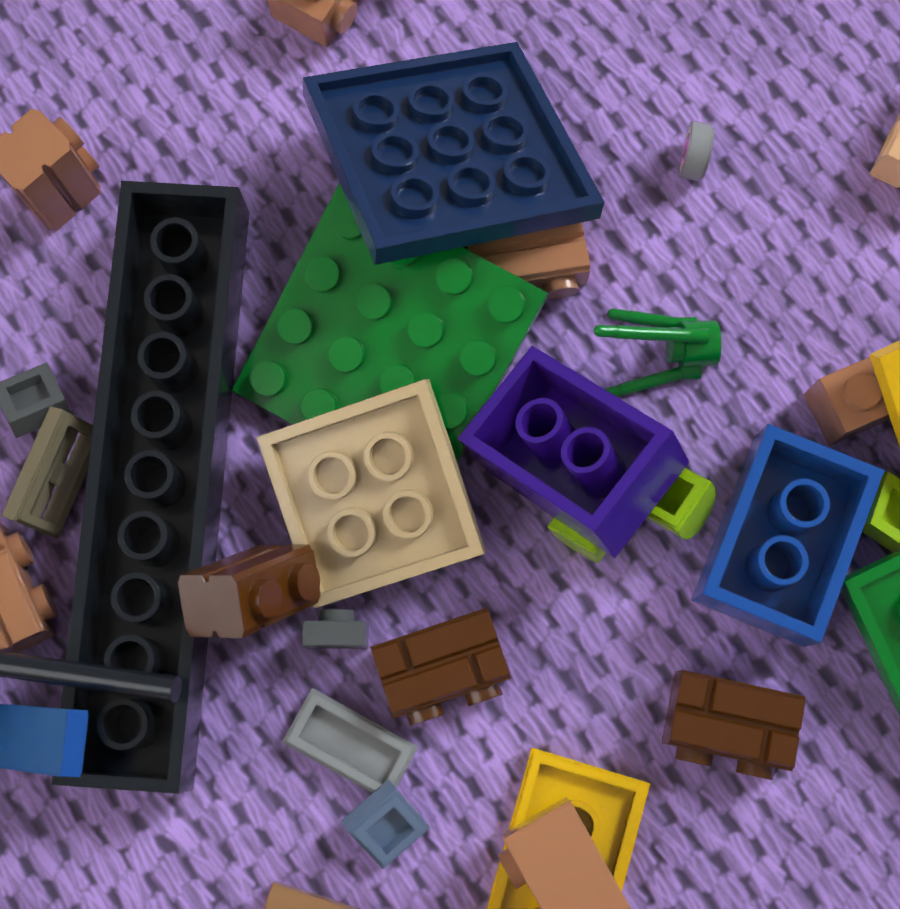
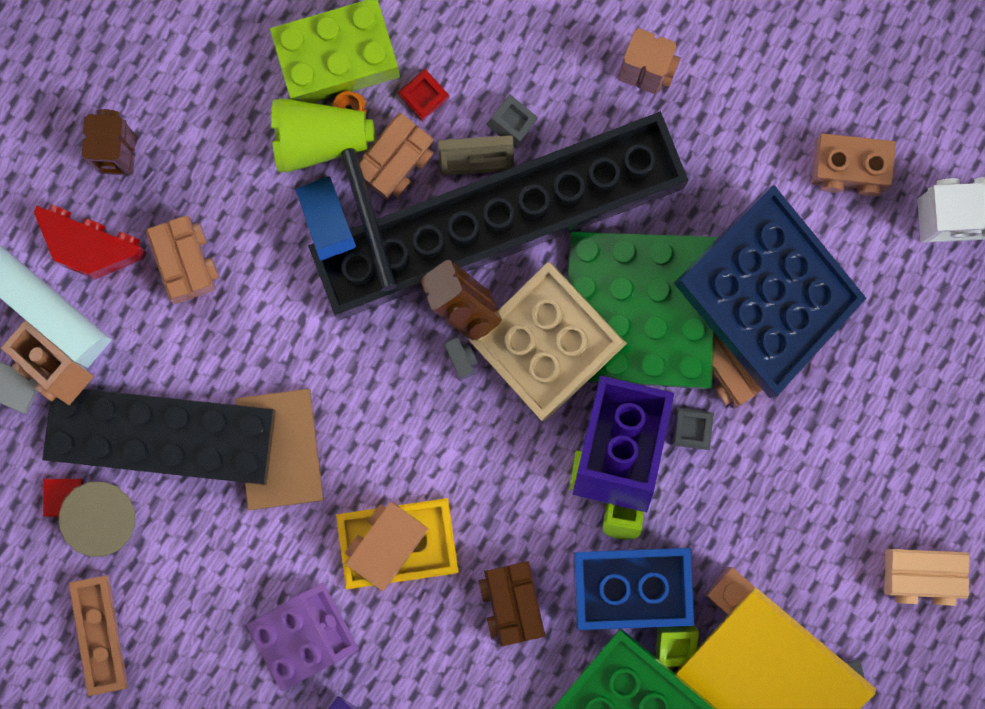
camera: 60 degrees right, 5 degrees up
(349, 743) = (402, 396): light grey tile -> none
(385, 824) = (368, 435): sand blue tile -> none
(441, 665) = (469, 426): reddish brown brick -> none
(587, 353) = (692, 429): none -> dark grey tile
(687, 340) = (725, 484): green plant -> none
(696, 151) = (846, 437): light grey tile -> none

